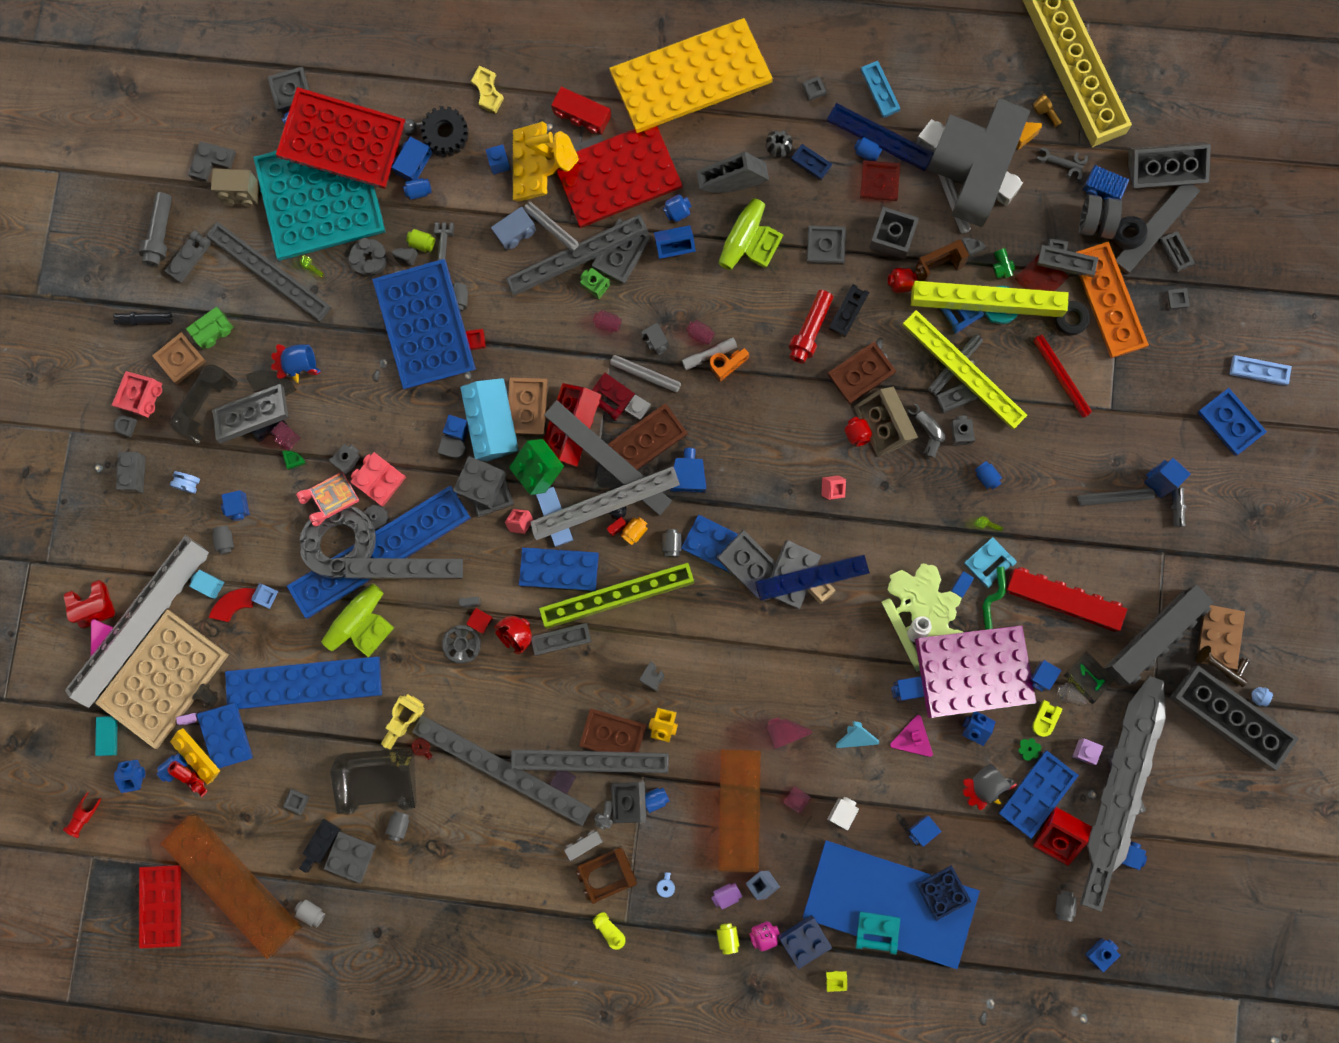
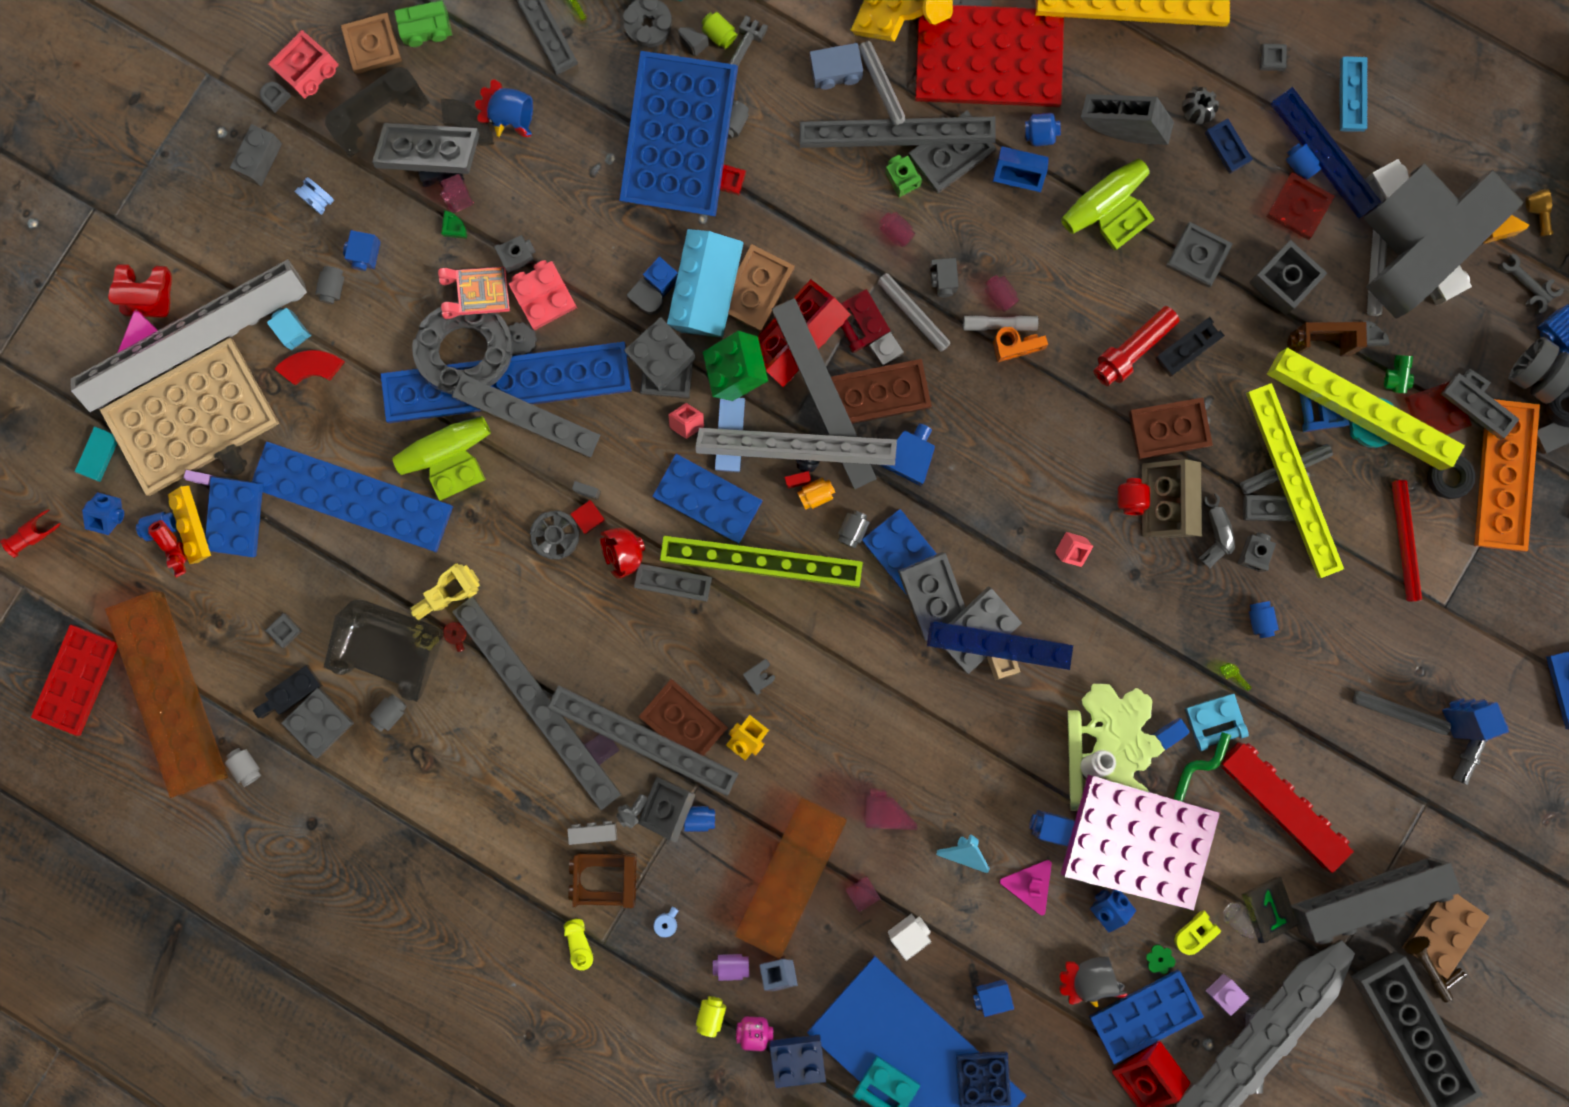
camera: 15 degrees right, 5 degrees up
(264, 595) = (350, 373): medium blue plate -> none
(901, 280) = (1270, 338): red head -> none
(1044, 676) = (1218, 884): blue brick -> none
(1261, 696) = (1461, 1024): light blue plate -> none

